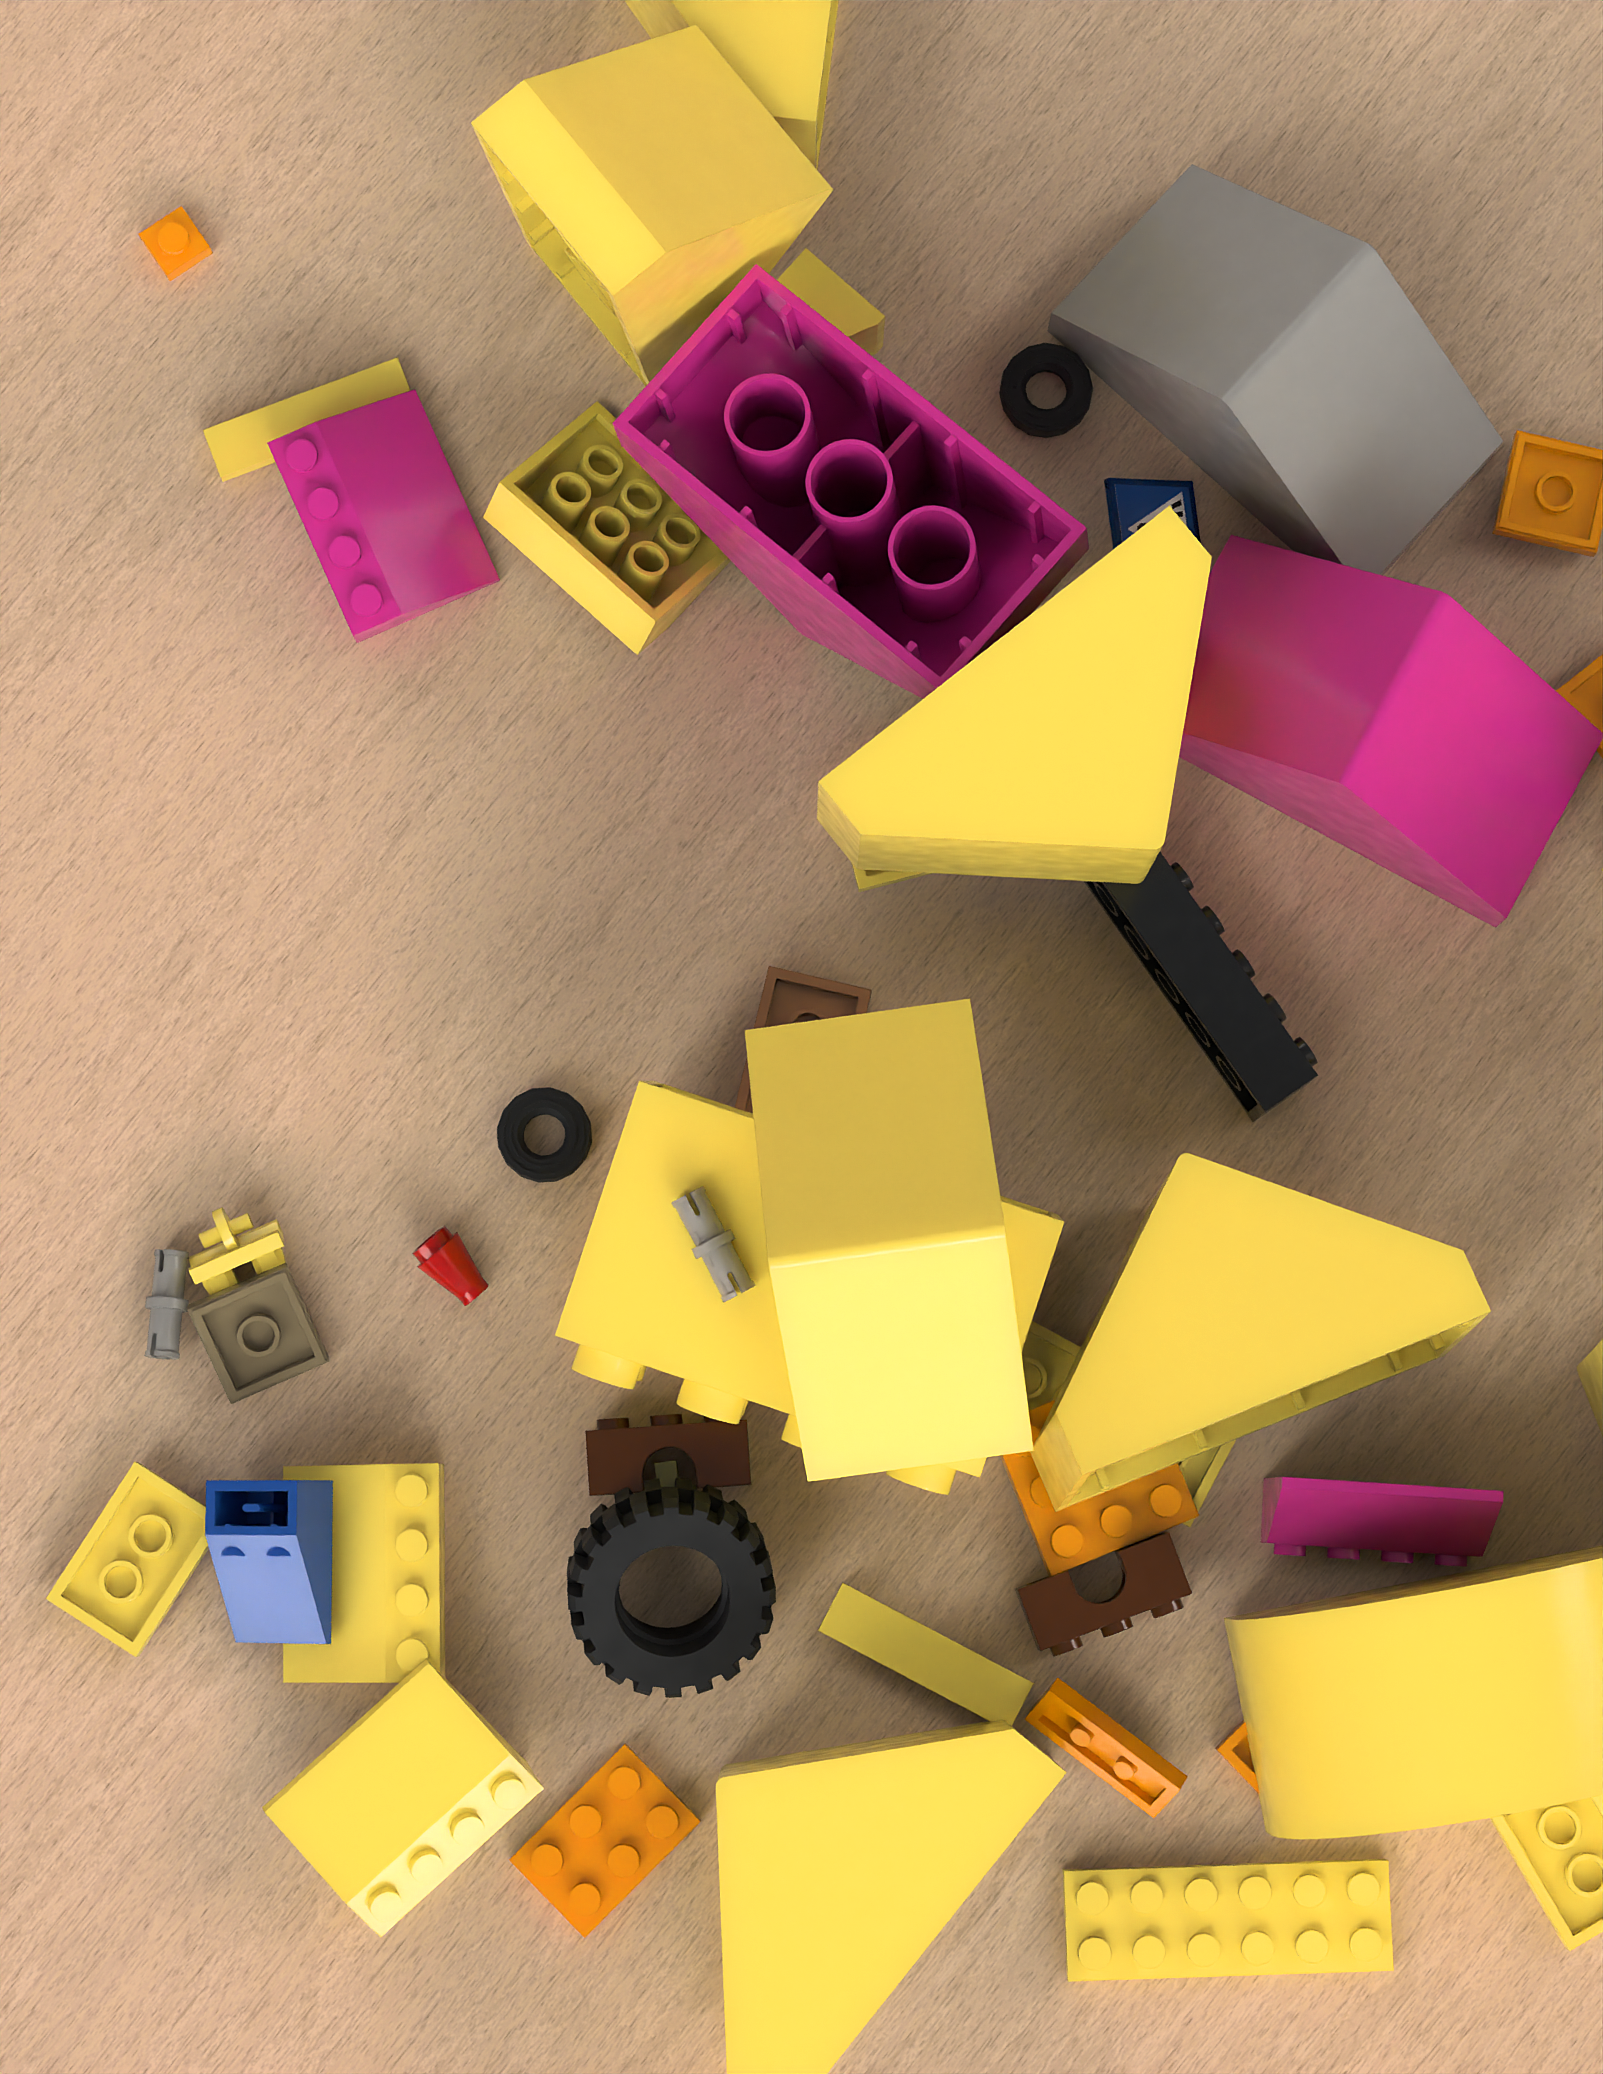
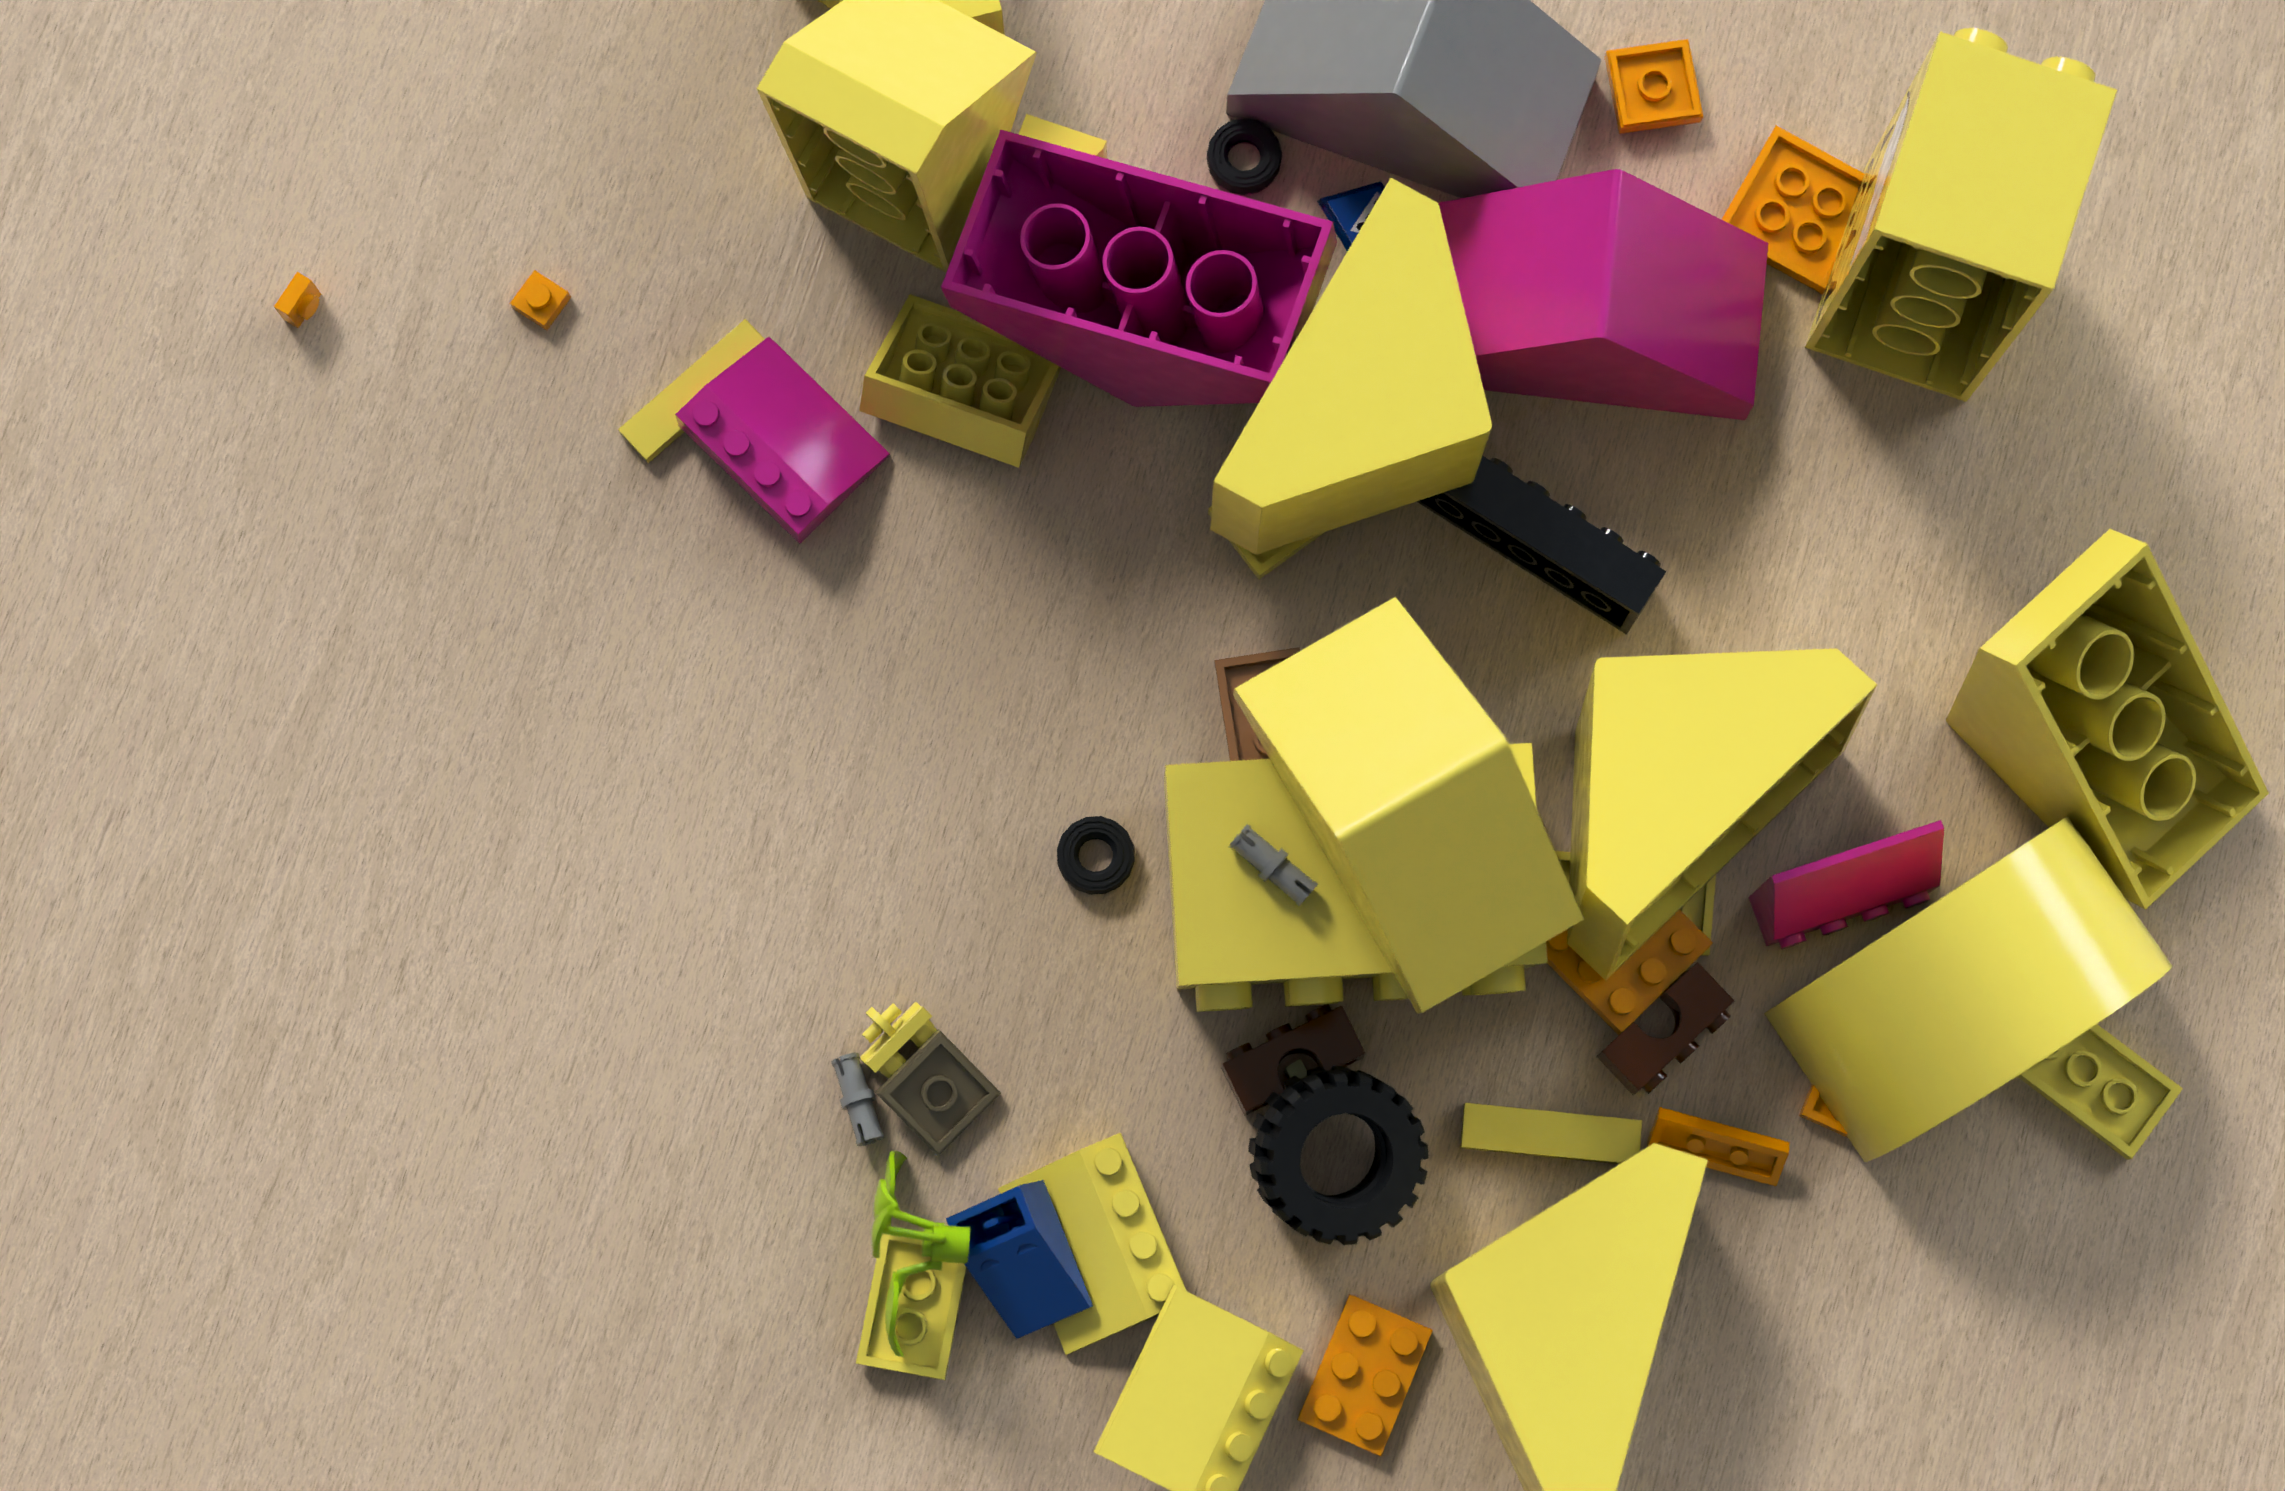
camera: 20 degrees left, 5 degrees down
(185, 1508) = (939, 1241): none -> lime plant
(450, 1265) = (1065, 982): red cone -> none
(1227, 1920) = (1864, 1241): light yellow plate -> none

